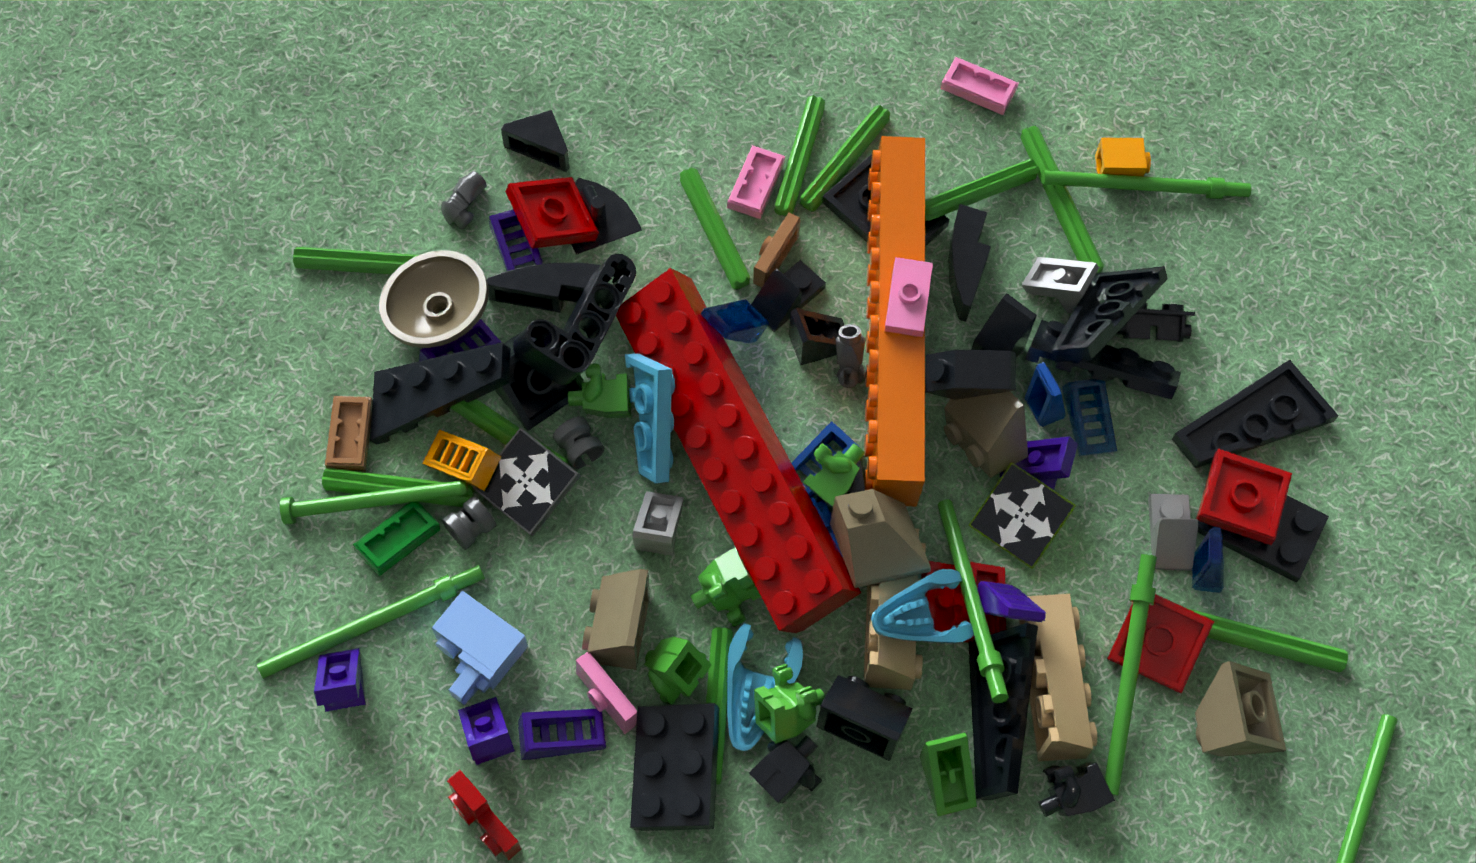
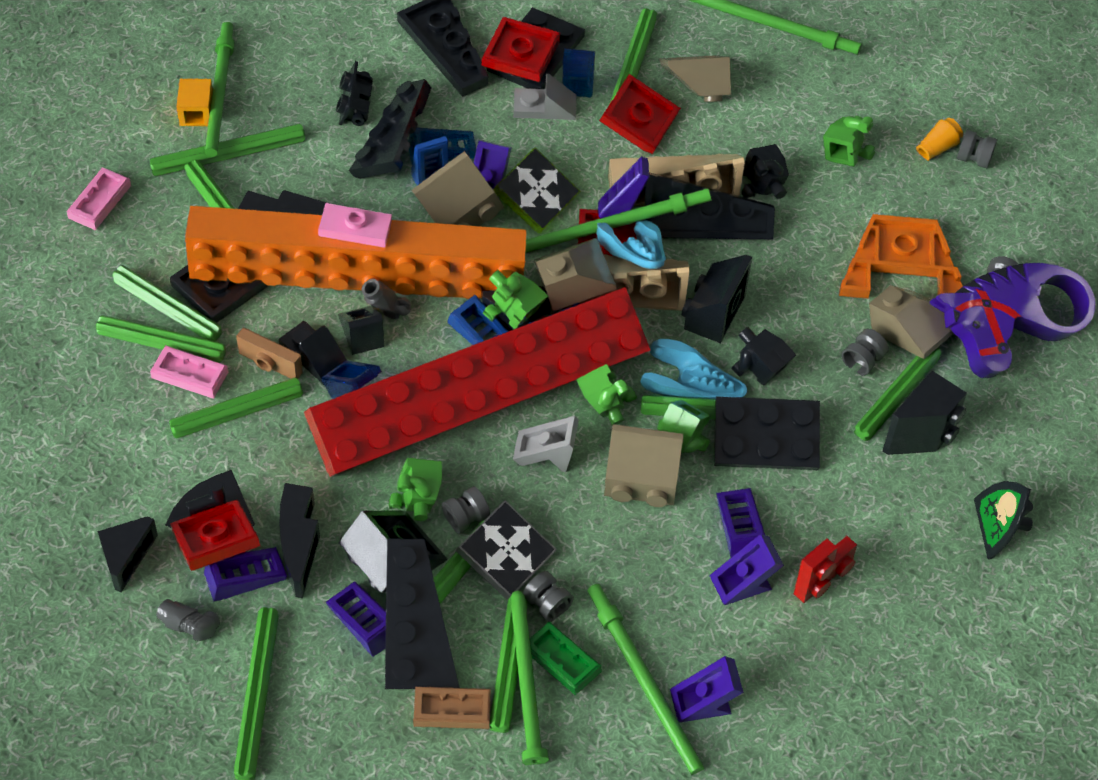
camera: 90 degrees left, 10 degrees down
(427, 286) = (298, 611): dark tan dish -> none
(481, 469) = (499, 575): light orange slope -> none
(483, 642) = (665, 581): light blue hinge -> none
(587, 315) = (381, 489): black beam -> none
(605, 693) = (706, 482): bright pink plate -> none
(653, 403) = (449, 435): medium azure wing -> none
(786, 707) = (716, 344): bright green piece -> none
(949, 773) = (764, 250): bright green slope -> none
(970, 373) = (431, 186): black slope -> none
(1006, 327) = (373, 185): black slope -> none
(1060, 279) = (316, 146): light grey slope -> none
(1104, 310) = (356, 114): black wing -> none
(1142, 596) = (614, 110): bright green bar -> none

